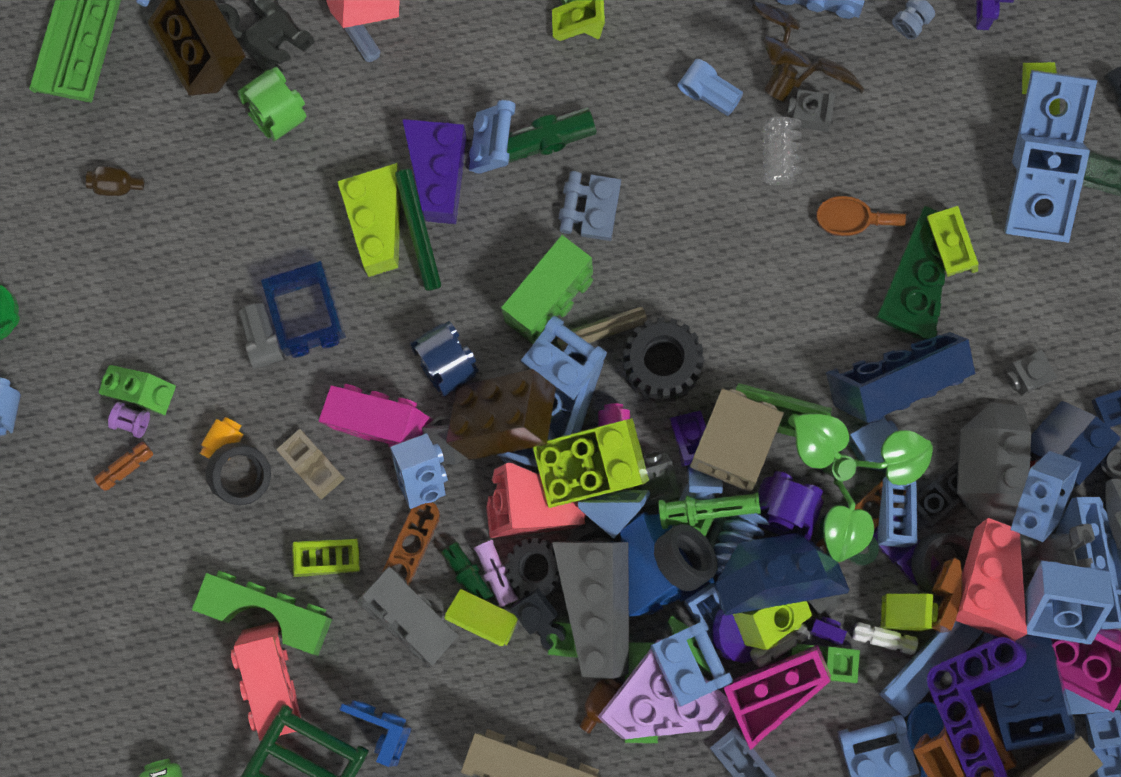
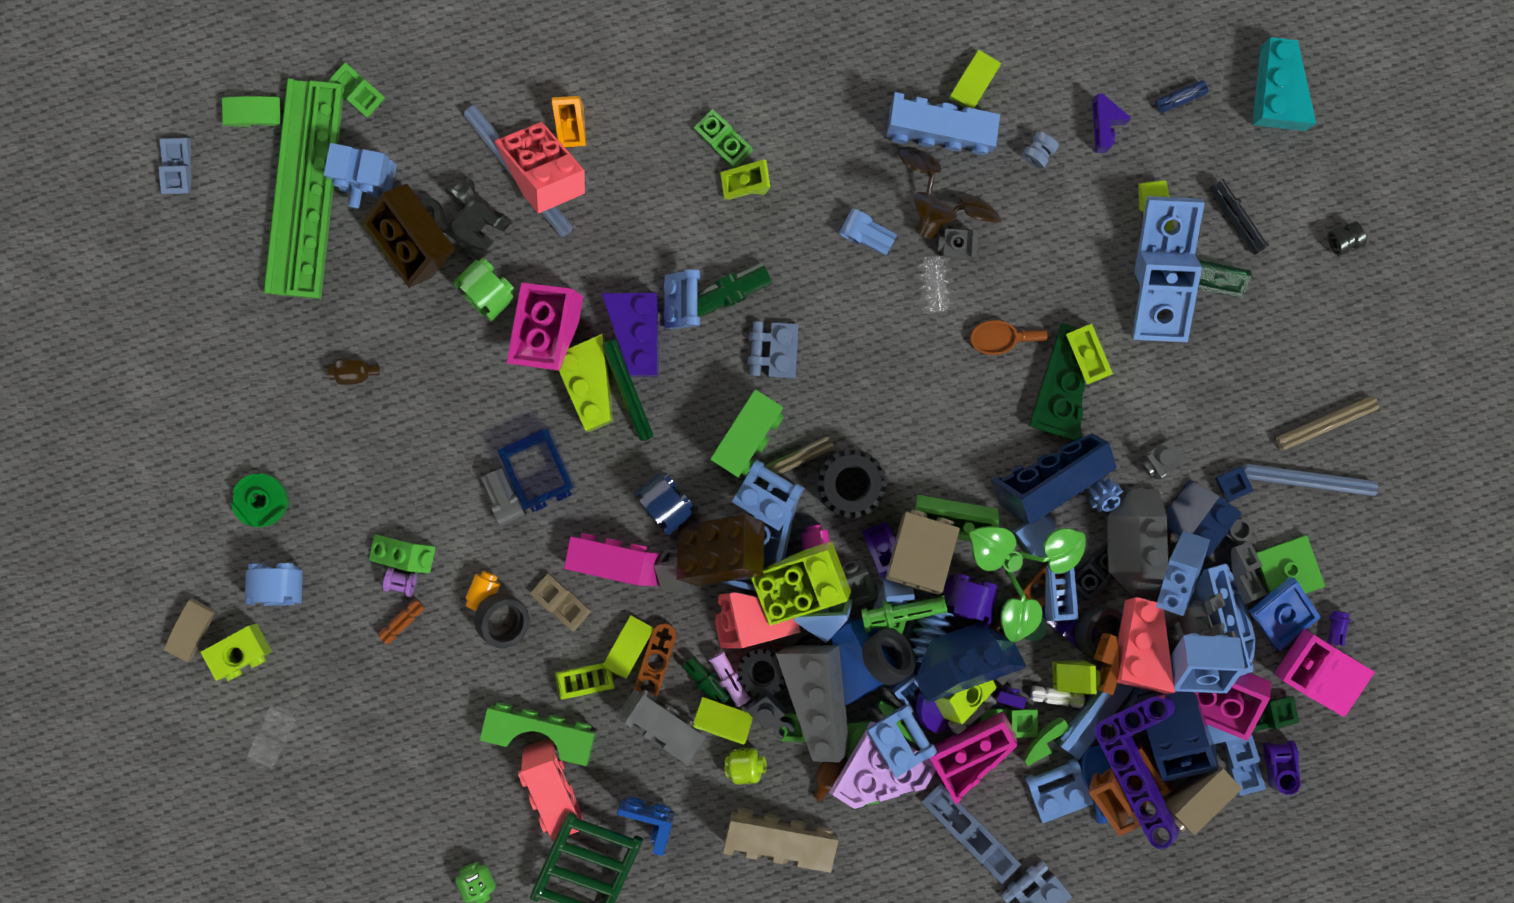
camera: 15 degrees left, 10 degrees up
(333, 146) = (544, 326): none -> dark pink slope
(380, 524) = (628, 647): none -> lime slope
(419, 470) = (656, 603): medium blue brick -> none
(501, 678) = (745, 766): none -> lime head
(858, 693) = (1038, 745): none -> bright green slope
(959, 404) = (1104, 495): none -> medium blue gear

